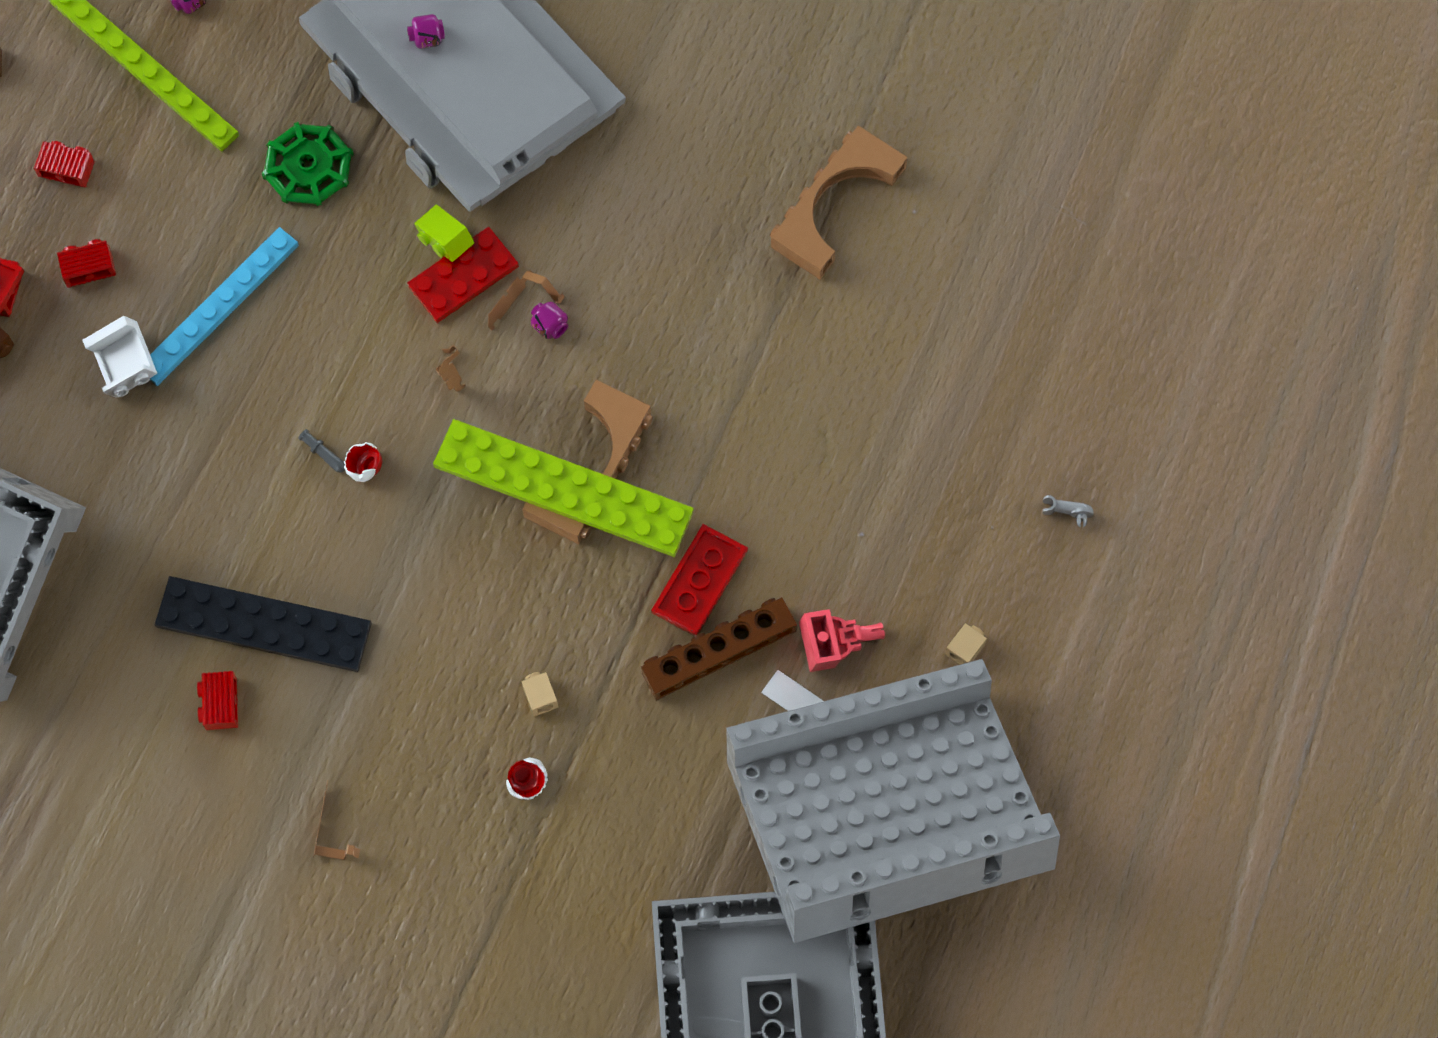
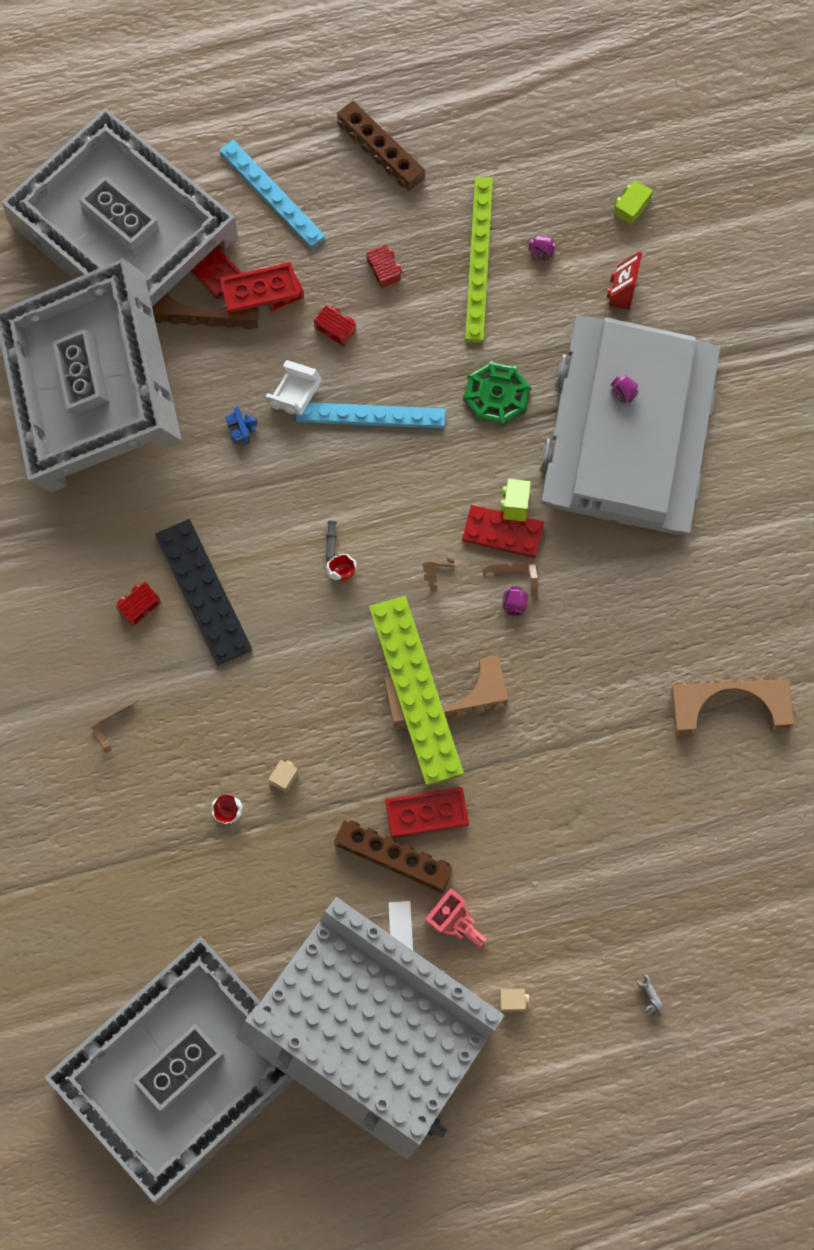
camera: 50 degrees right, 0 degrees up
(122, 448) = (236, 419): none -> blue hips

